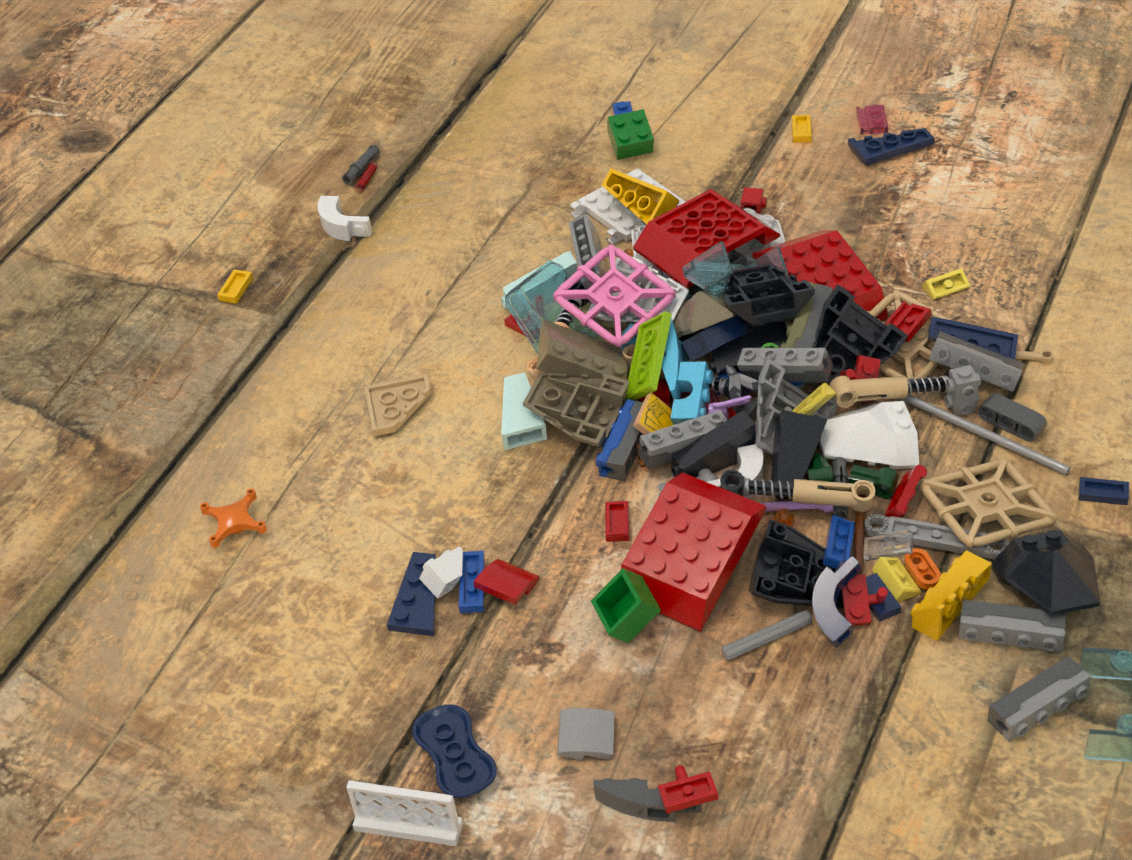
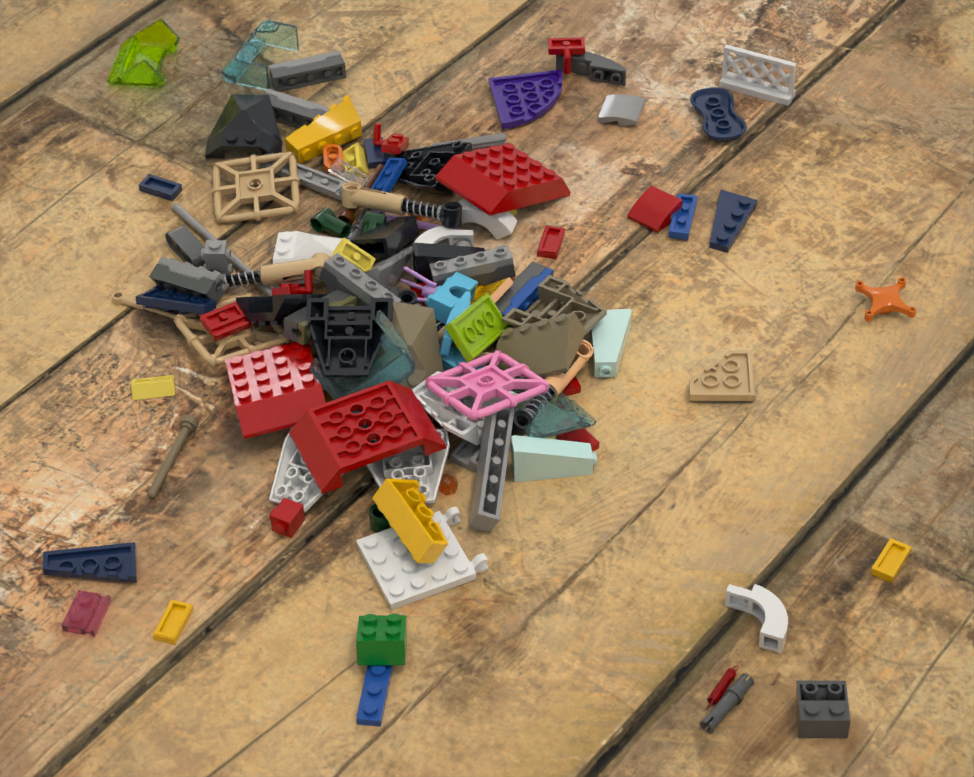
camera: 170 degrees left, 0 degrees up
(288, 164) = (822, 709): none -> dark grey slope
(443, 573) = (704, 218): white slope -> none
(625, 605) = (568, 159): green piece -> none
(725, 726) = (525, 96): none -> dark purple plate
(737, 380) = (405, 293): flat silver piece -> none
(824, 601) = (412, 136): arch -> none
(886, 254) = (187, 426): none -> dark tan piece
(905, 492) = (324, 198): red plate -> none

